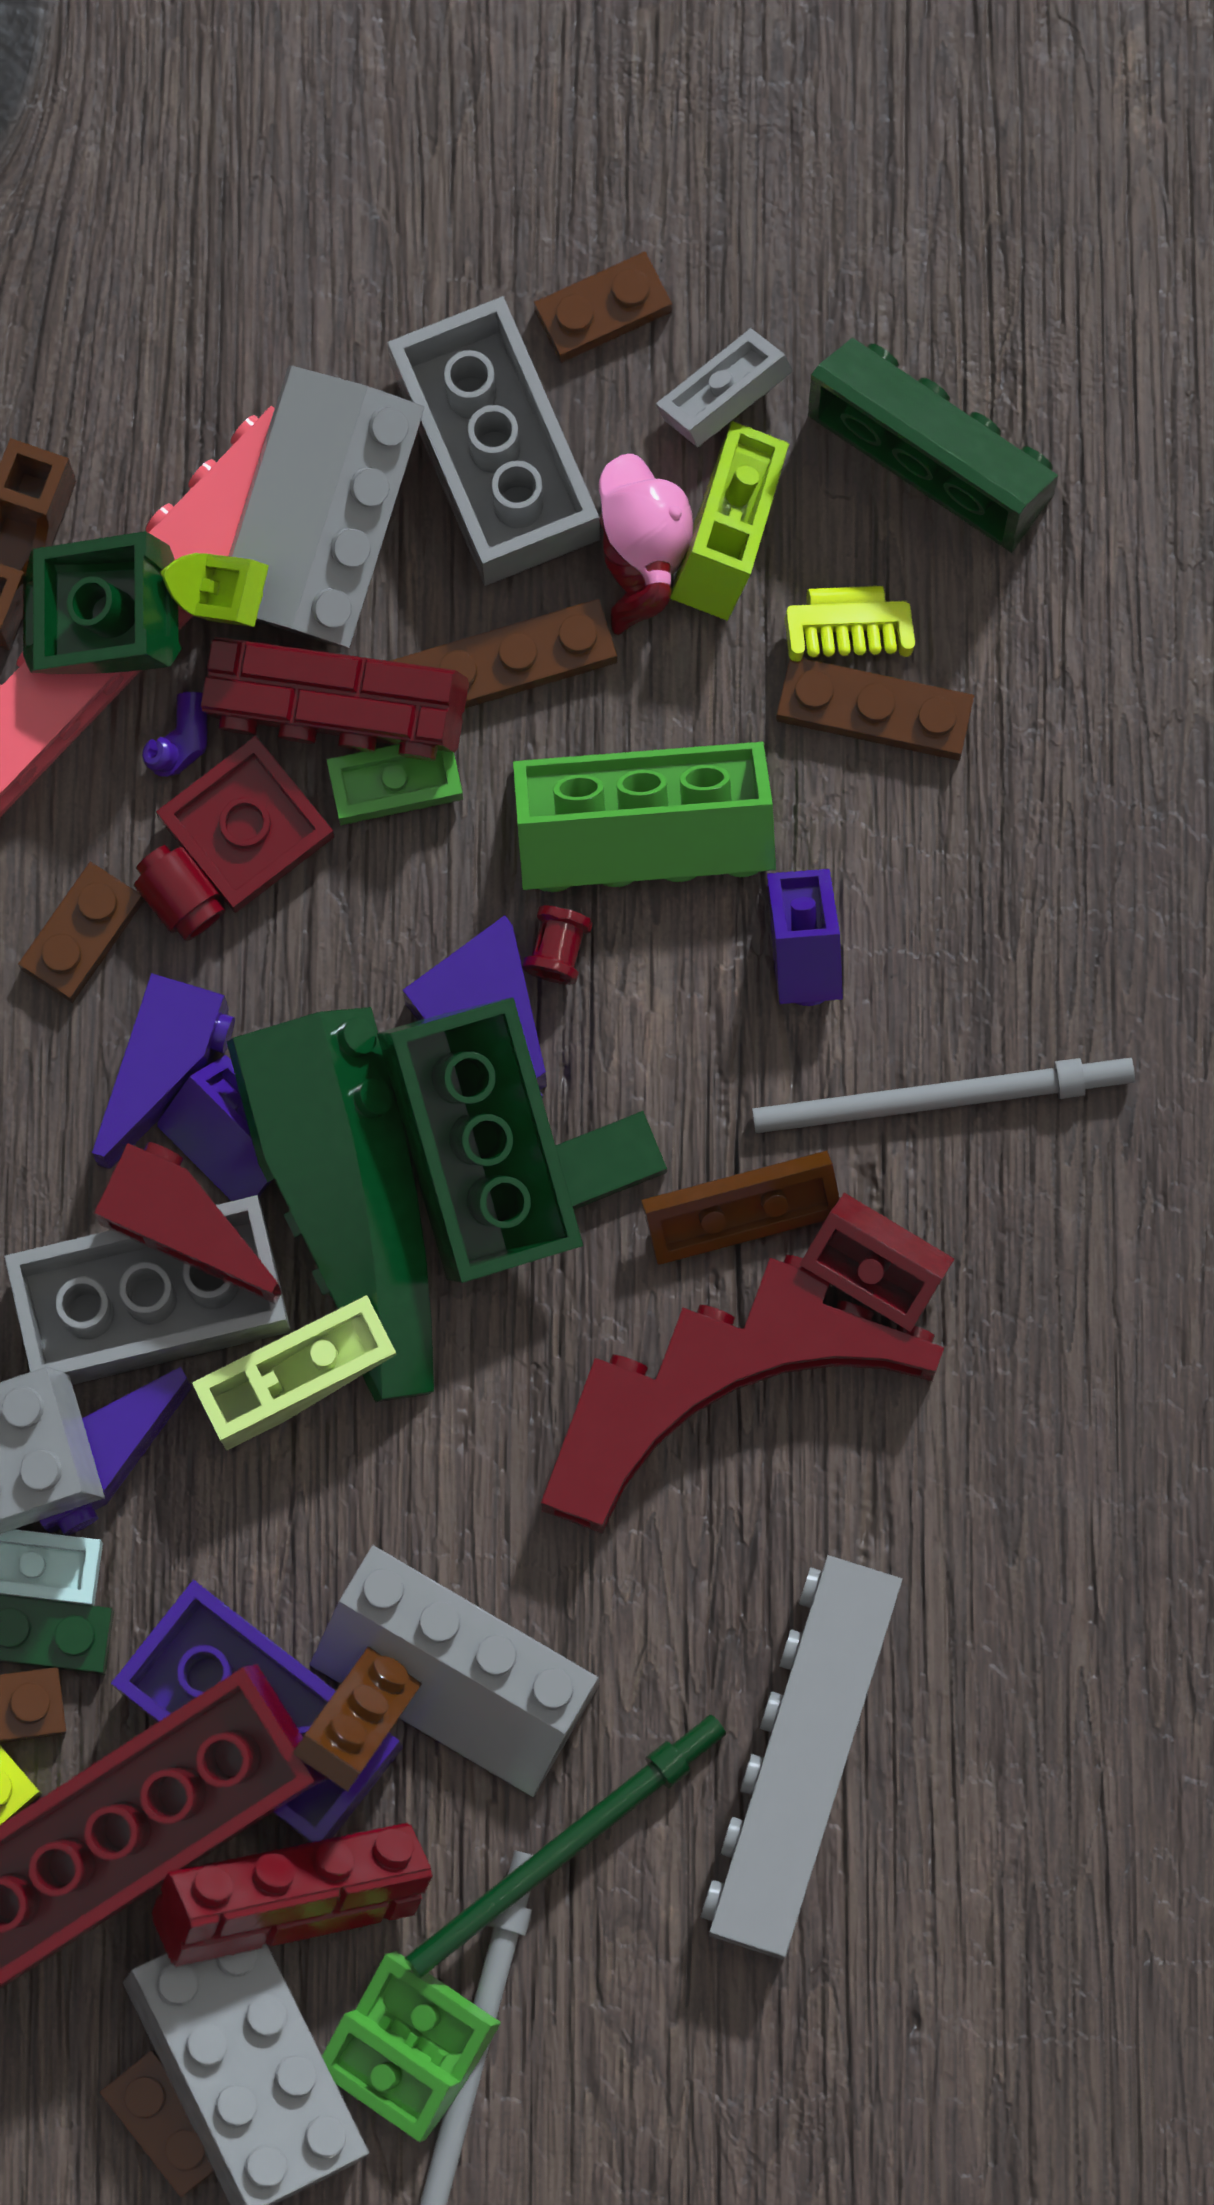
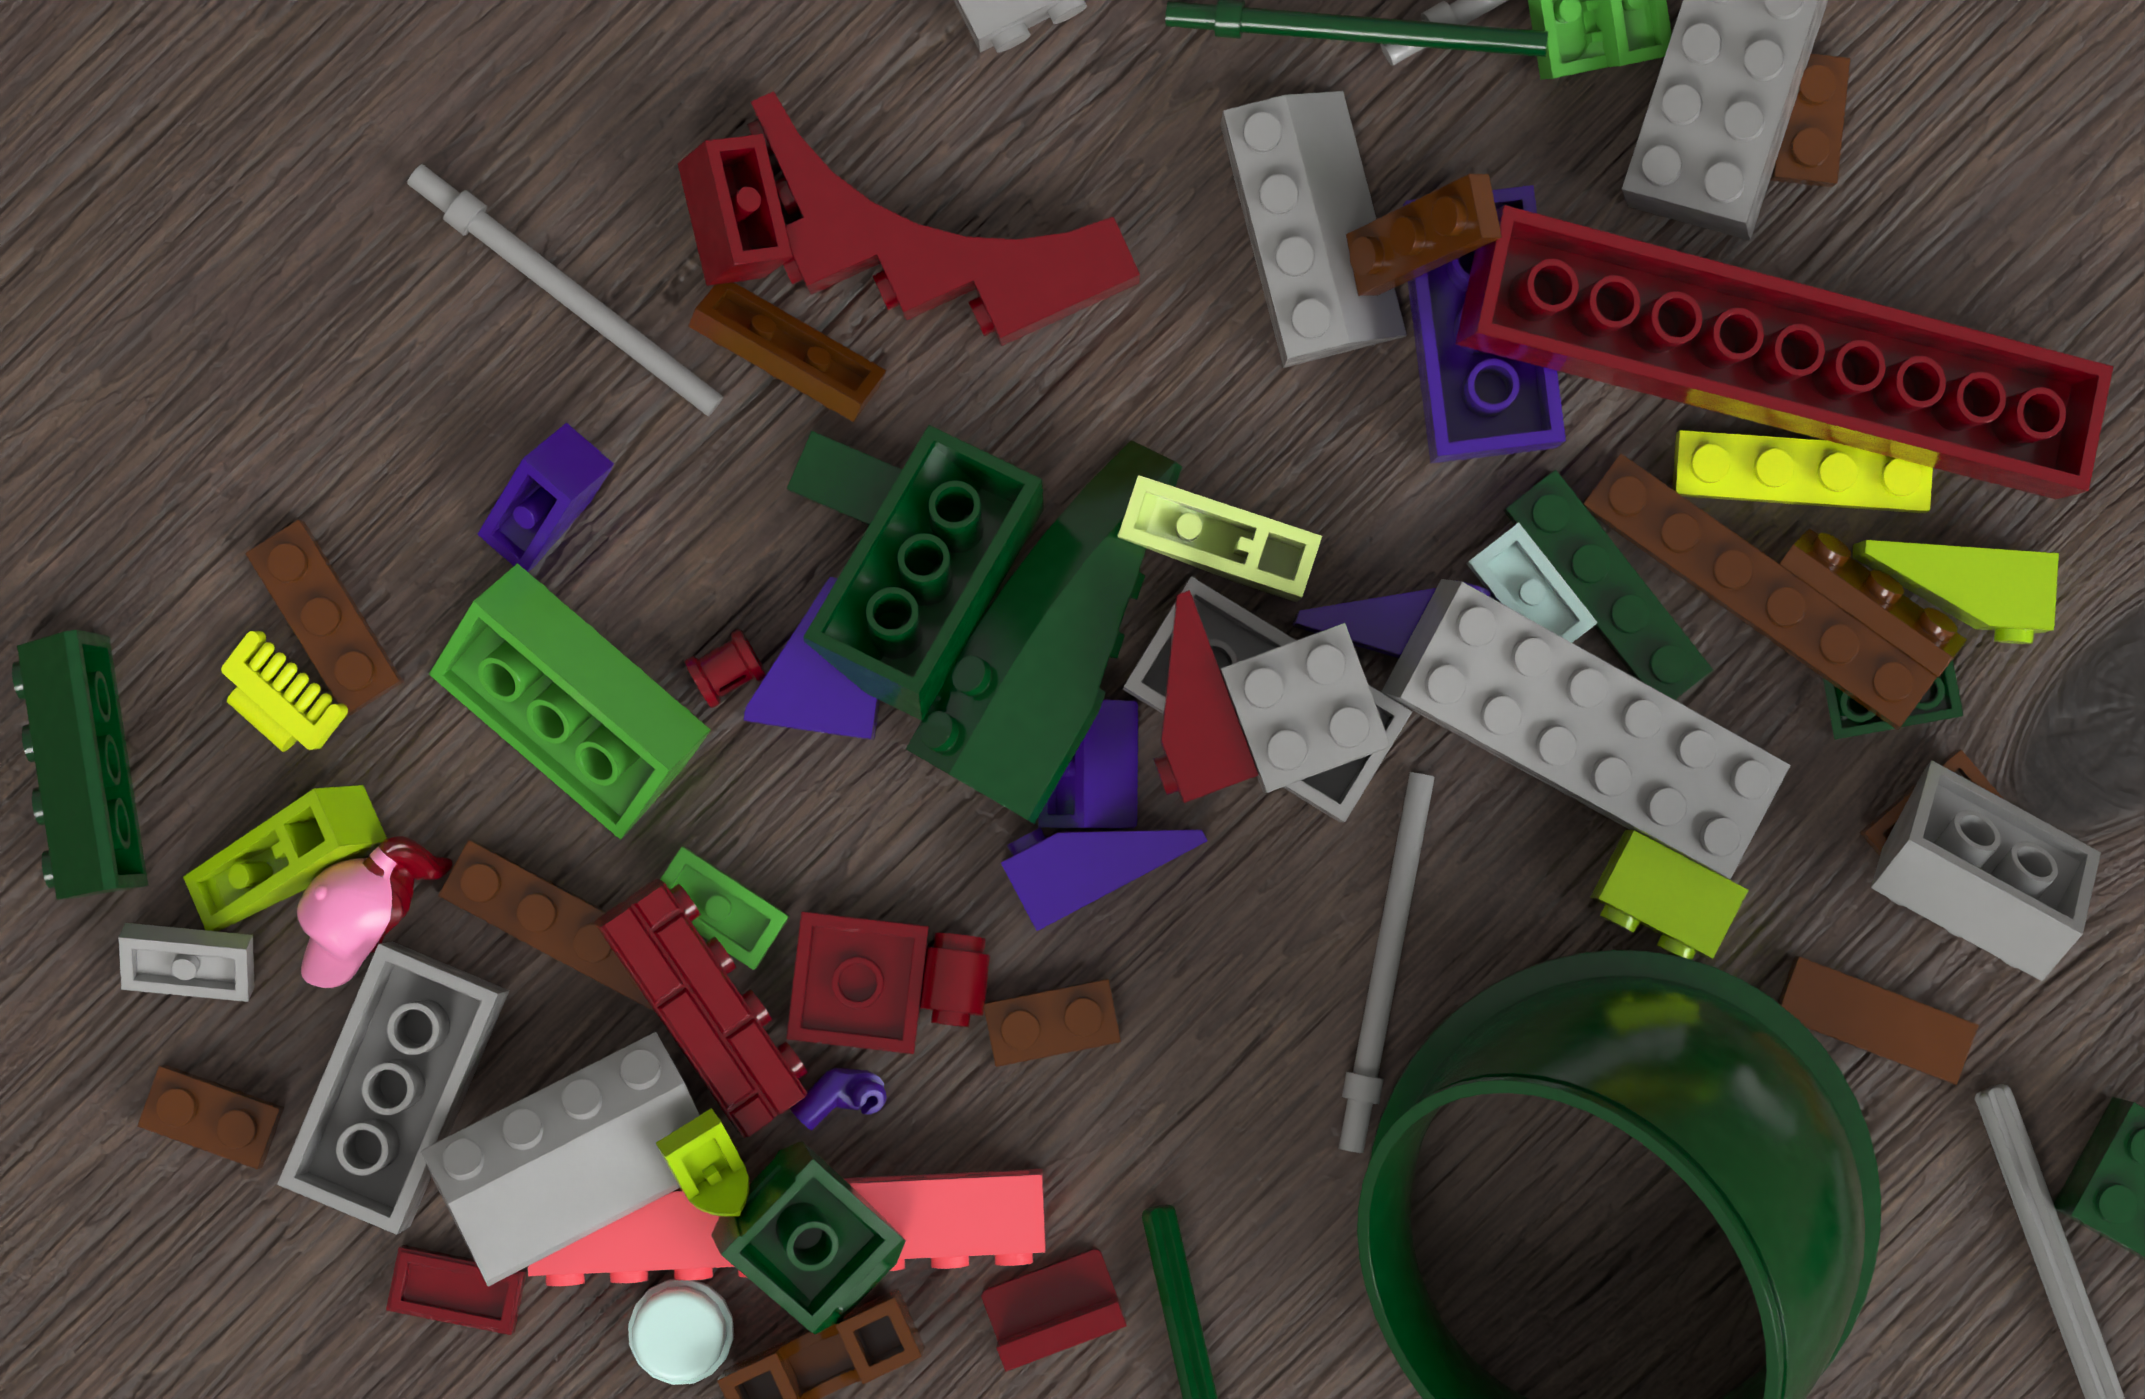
camera: 135 degrees left, 10 degrees up
(109, 1296) = (1305, 708): none -> light grey brick
(130, 475) = (681, 1331): none -> light aqua piece
(291, 1894) = (1585, 167): dark red brick -> none
(329, 344) = (453, 1291): none -> dark red tile

